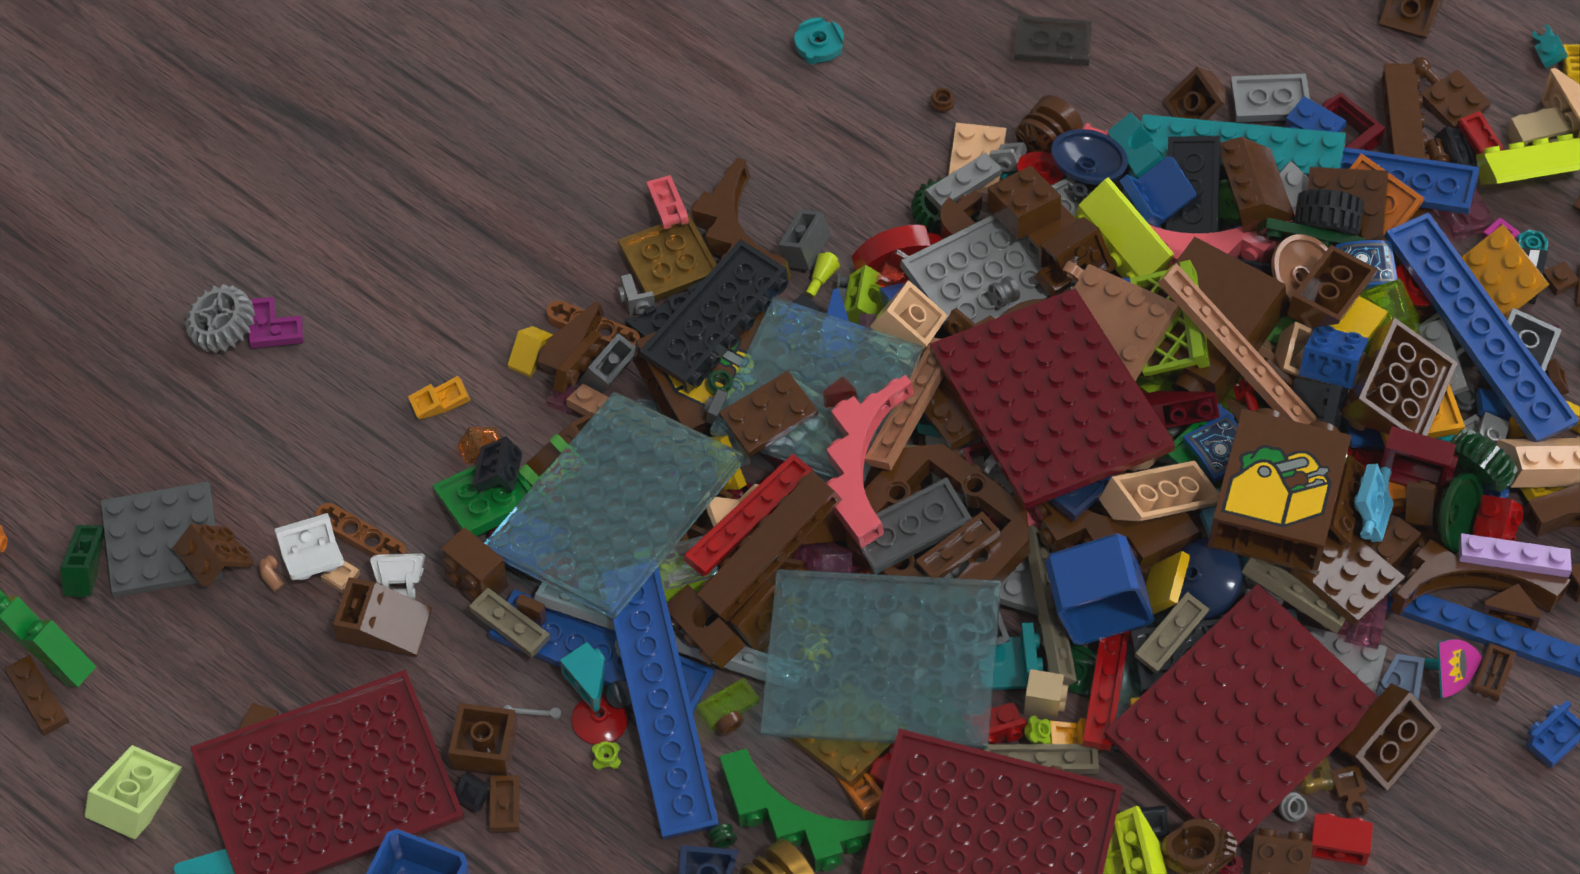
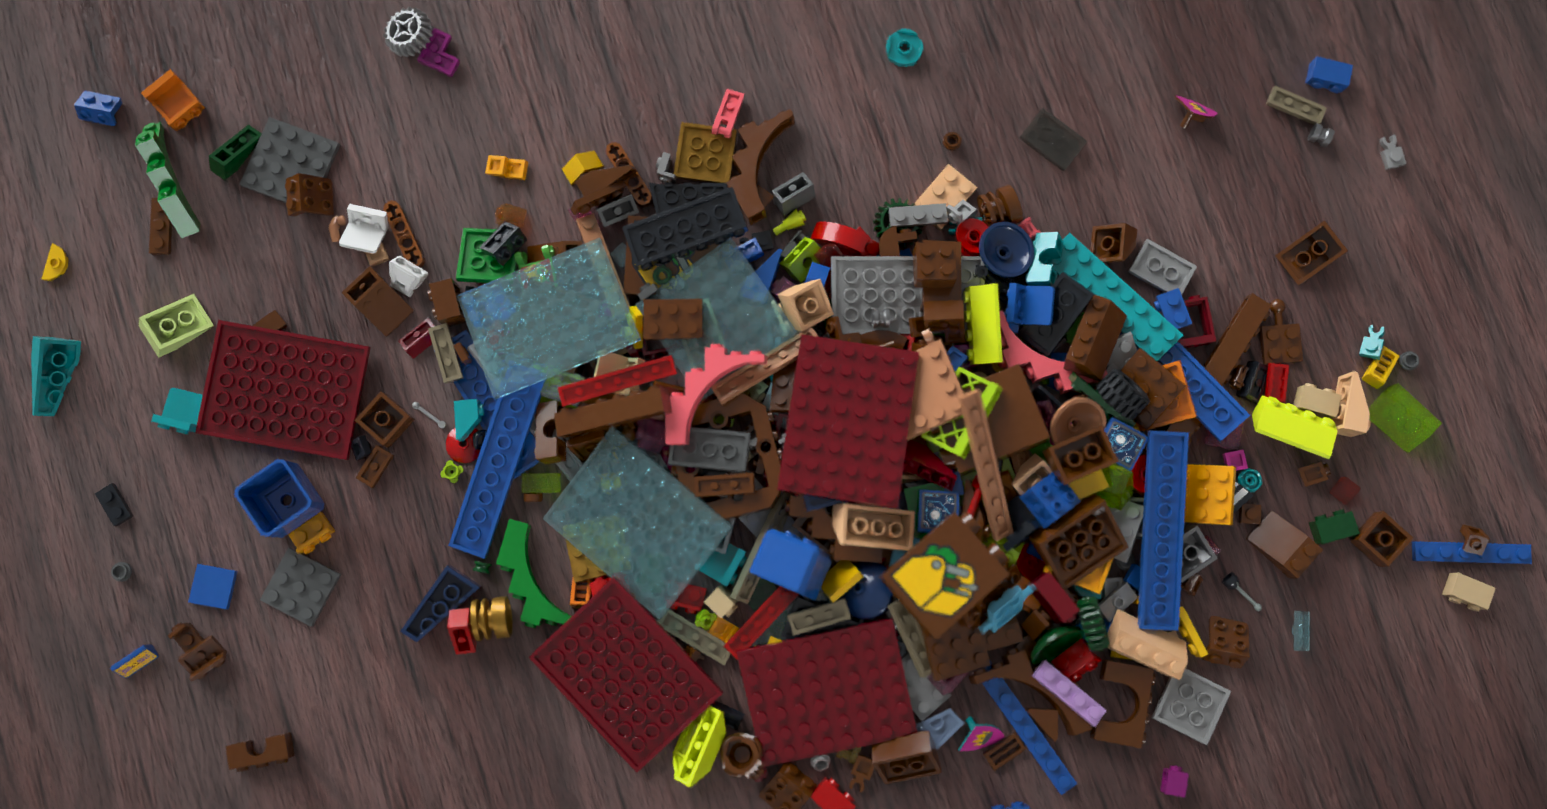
camera: 30 degrees right, 25 degrees up
(460, 636) = (417, 339): none -> dark red slope
(837, 392) = (721, 335): clear red slope -> none

